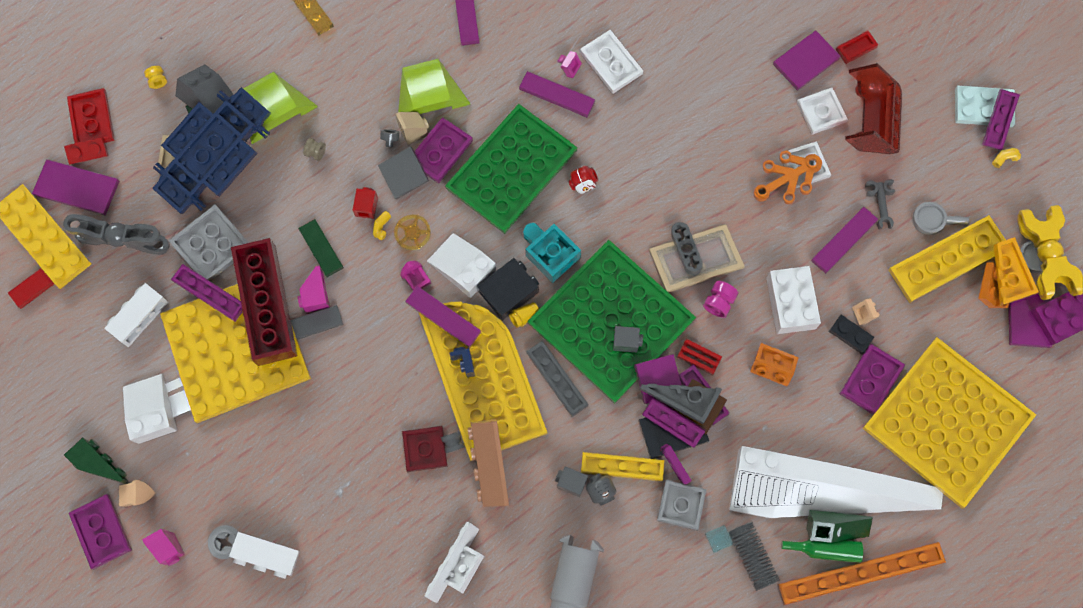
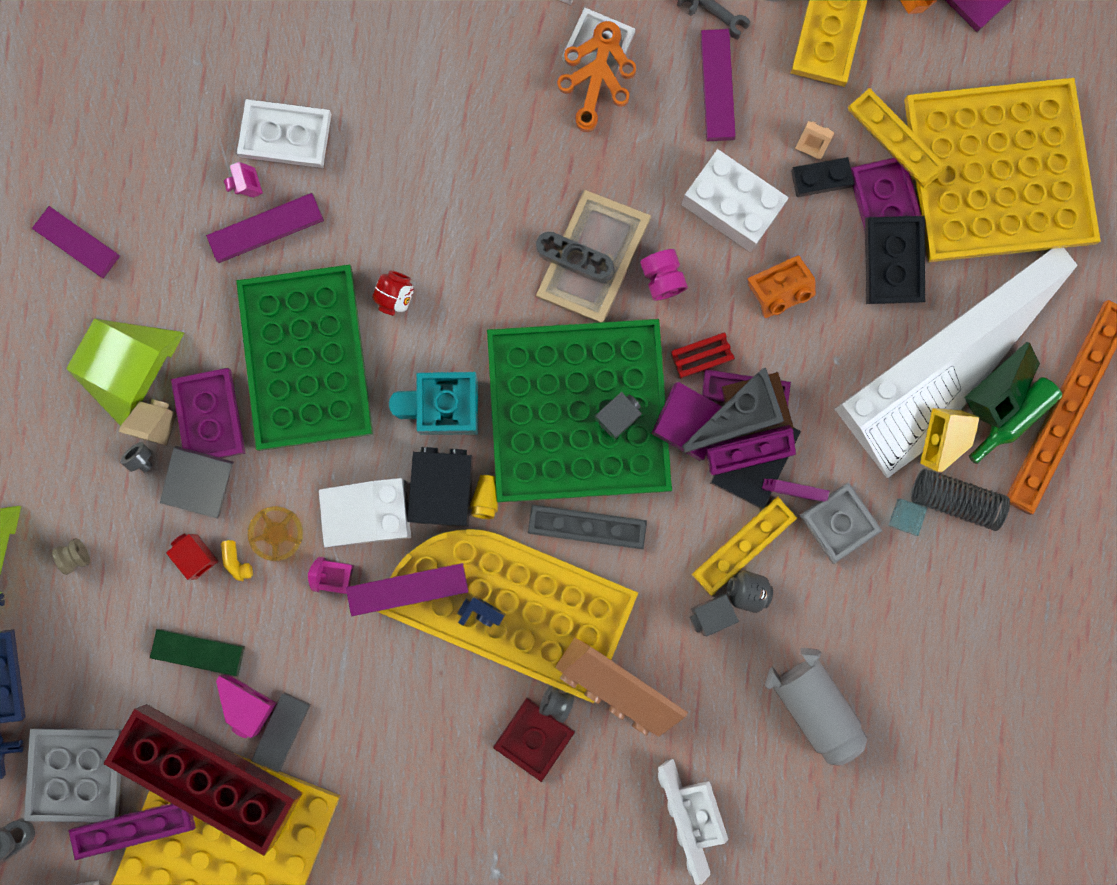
camera: 50 degrees left, 10 degrees up
(780, 519) = (948, 437): none -> yellow slope
(845, 409) = (895, 259): none -> black tile
(909, 352) = (897, 138): none -> yellow tile

